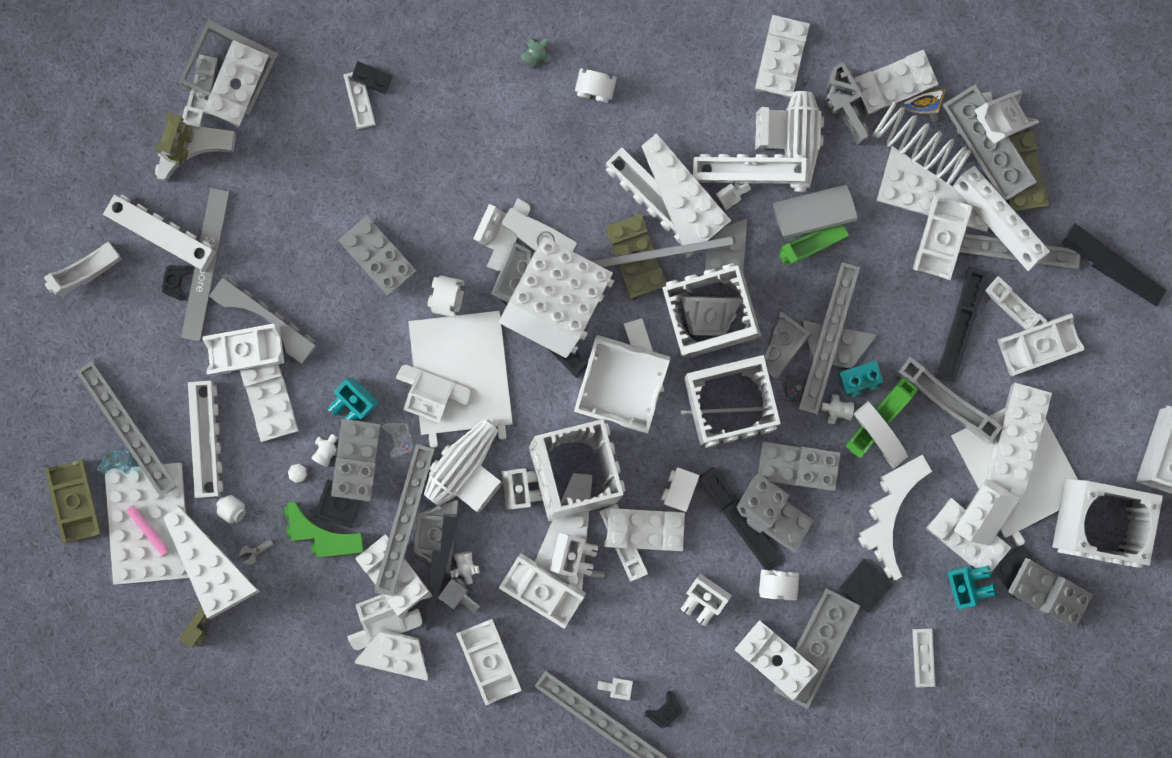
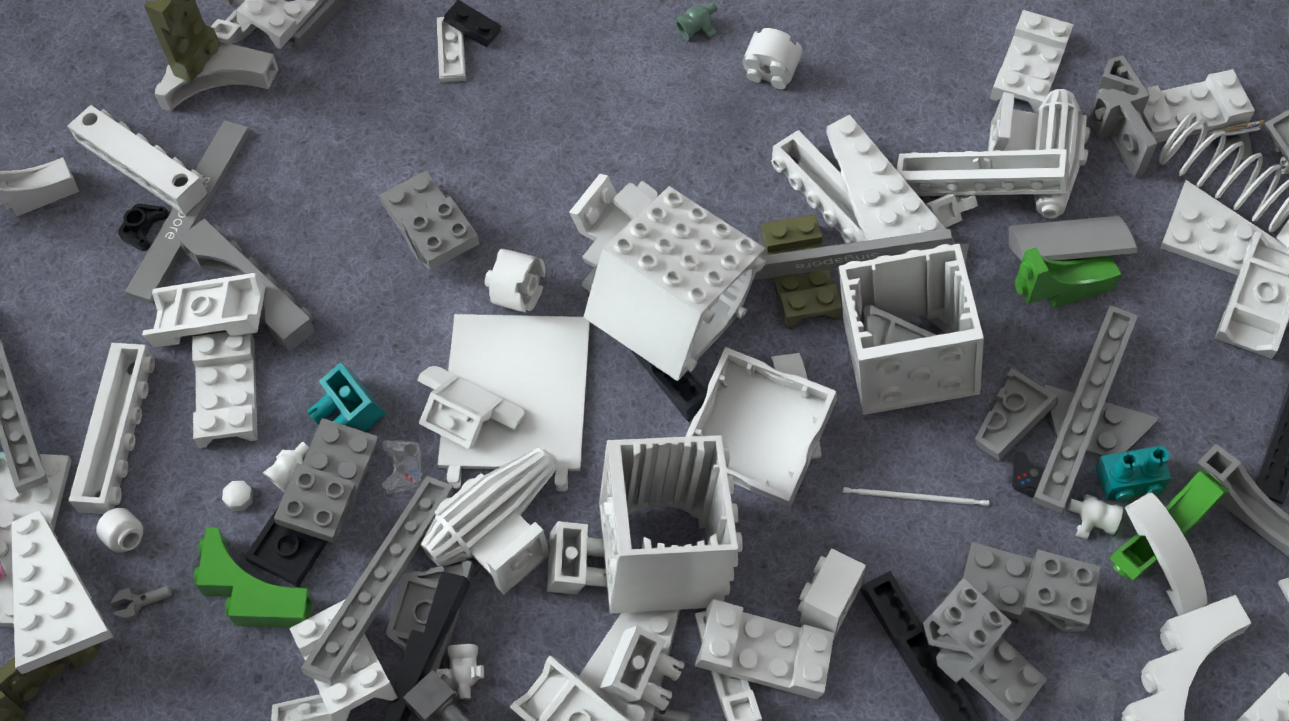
camera: 15 degrees right, 25 degrees down
(753, 368) = (931, 413): white piece -> none

